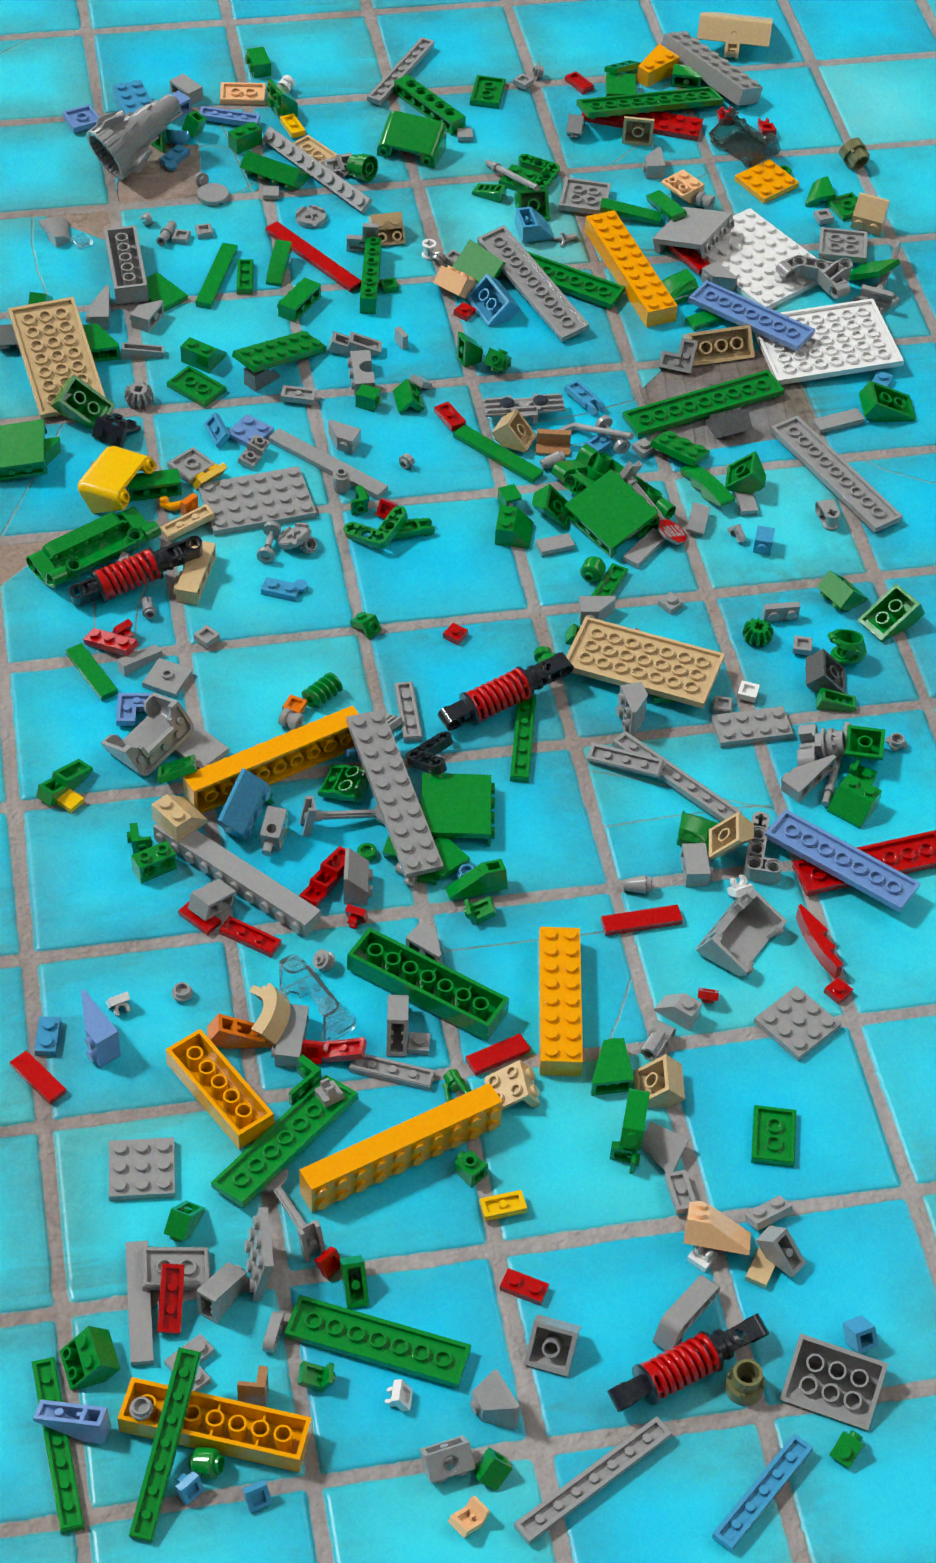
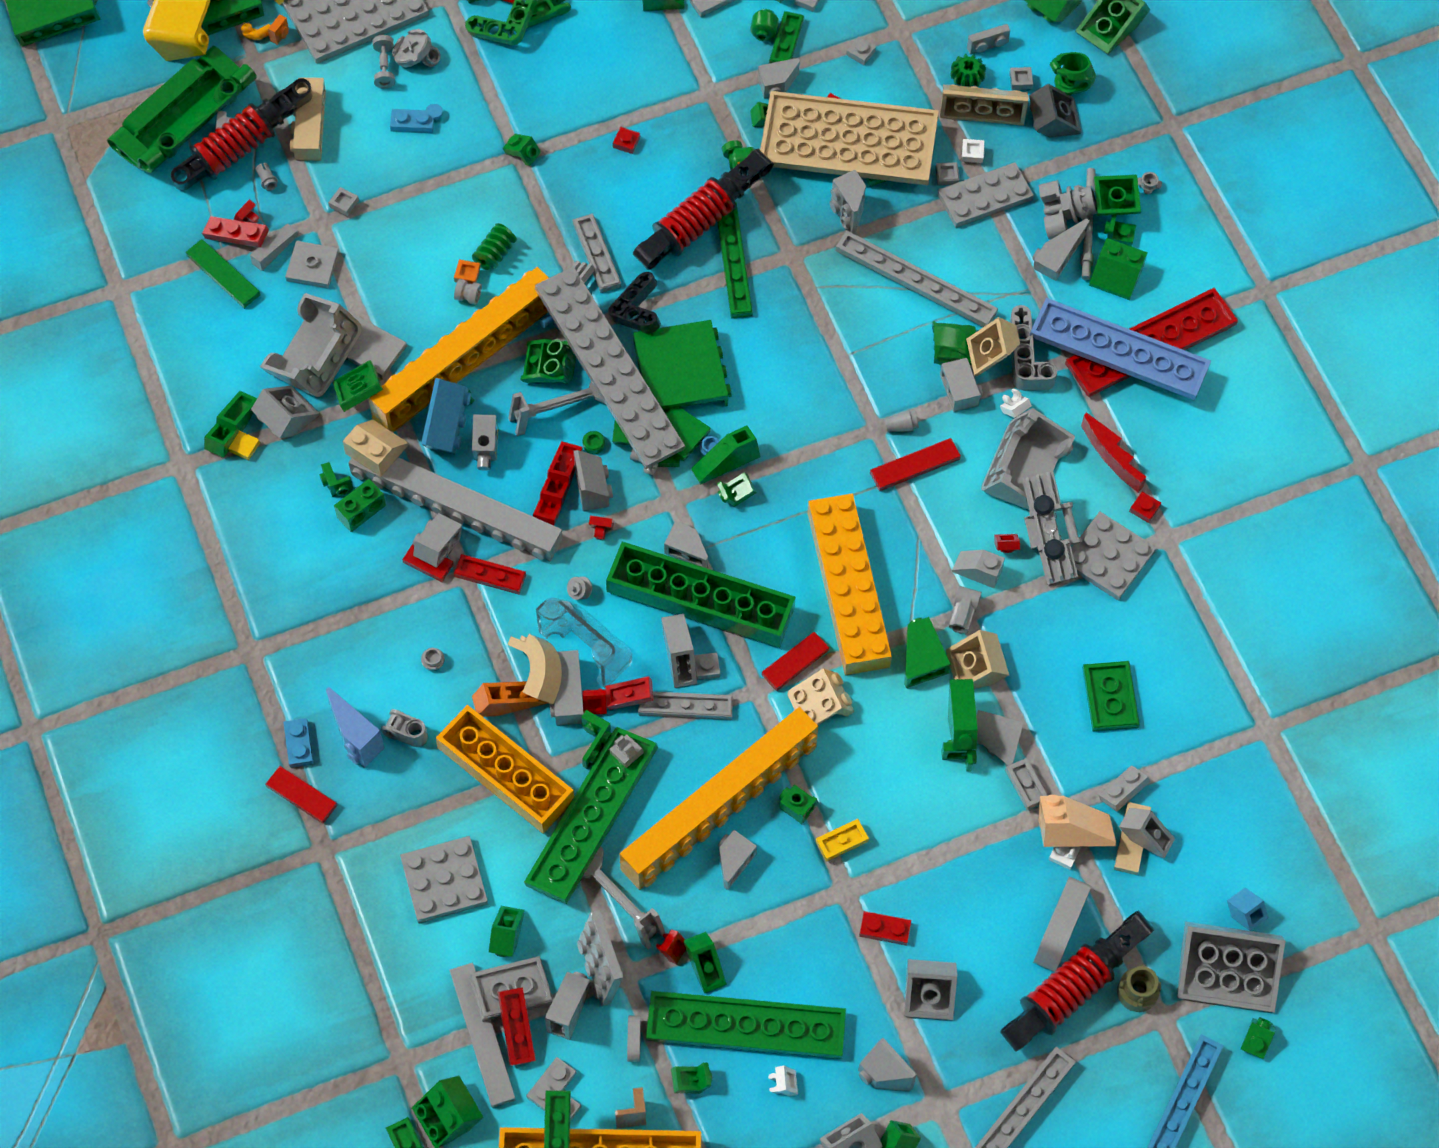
camera: 10 degrees left, 15 degrees up
(110, 780) = (284, 411): none -> light grey slope
(117, 1001) = (365, 685): white tile -> none
(128, 706) = (278, 309): medium blue plate -> none
(142, 1042) = (401, 727): none -> light grey piece
(187, 522) = (282, 53): tan tile -> none
(404, 1199) = (734, 855): none -> light grey slope
(454, 1082) = (757, 705): green plant -> none
(625, 760) = (855, 268): light grey tile -> none
(741, 987) = (1043, 531): none -> light grey piece
(765, 658) = (984, 104): none -> tan slope
(829, 700) = (1060, 148): green slope -> none

